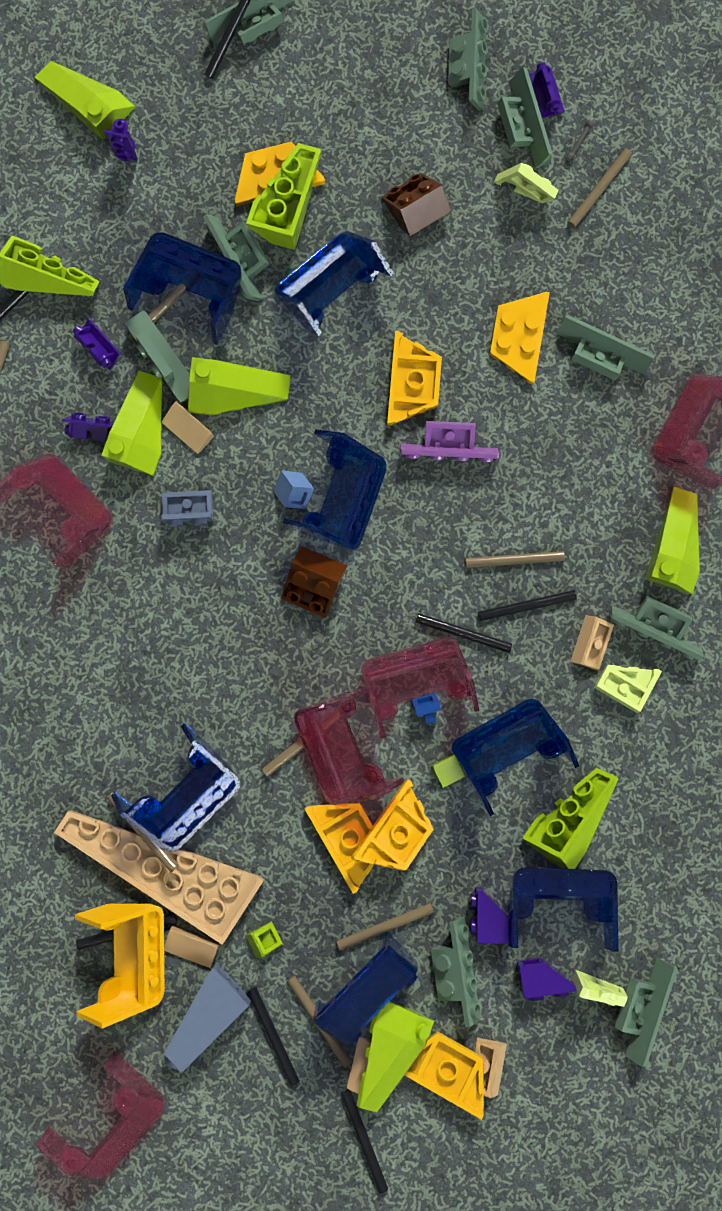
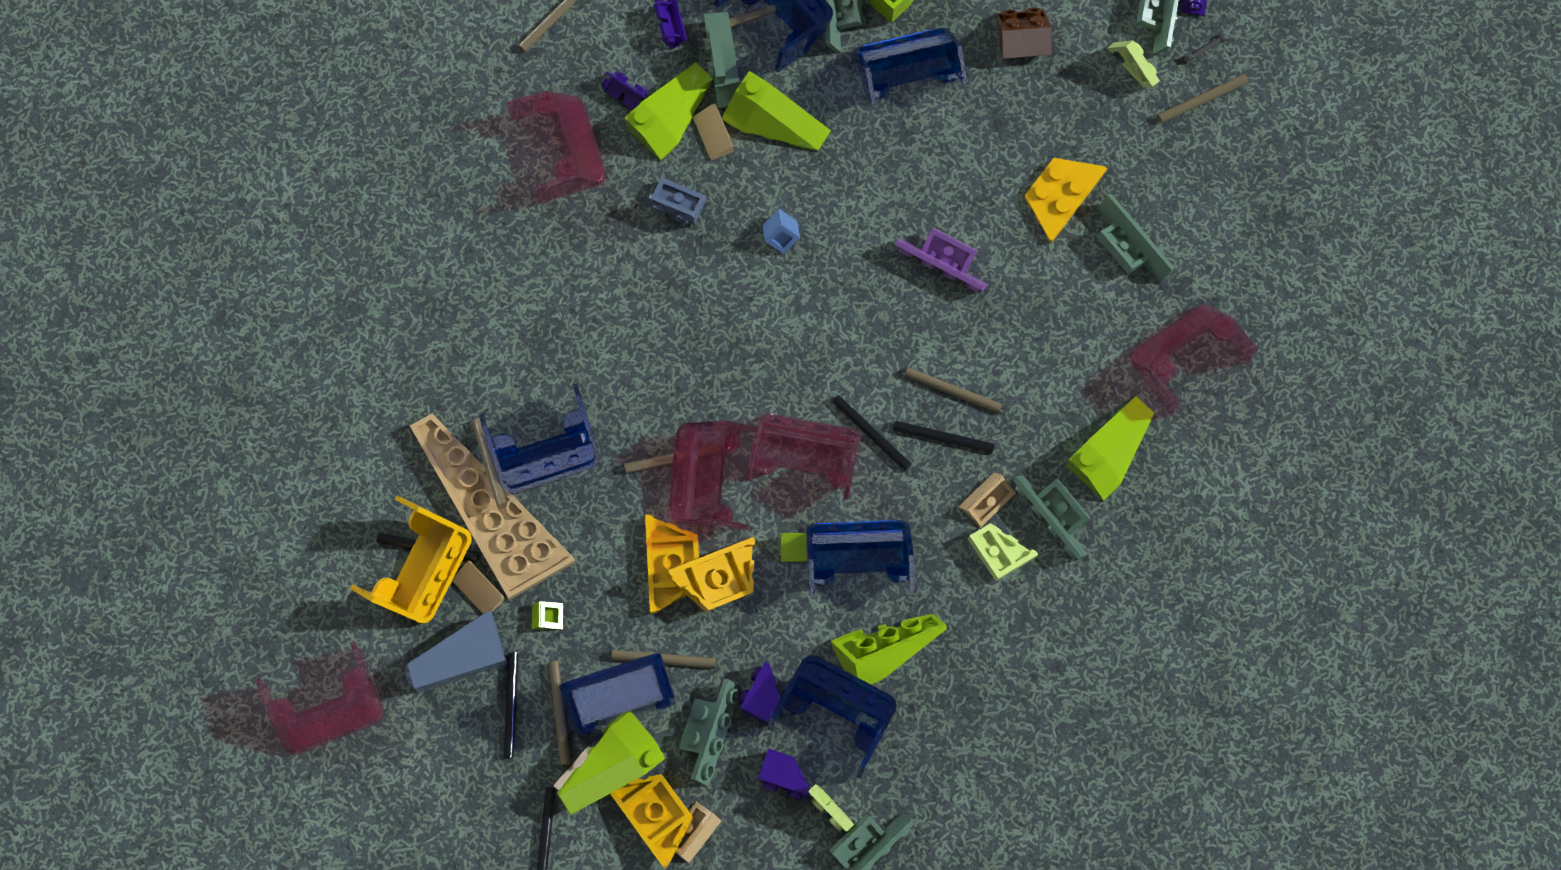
camera: 25 degrees right, 10 degrees down
(313, 581) = (757, 320): reddish brown slope -> none
(350, 493) = (831, 260): clear blue windscreen -> none
(413, 380) = (940, 187): yellow wing -> none
(426, 706) = (803, 479): blue tile -> none

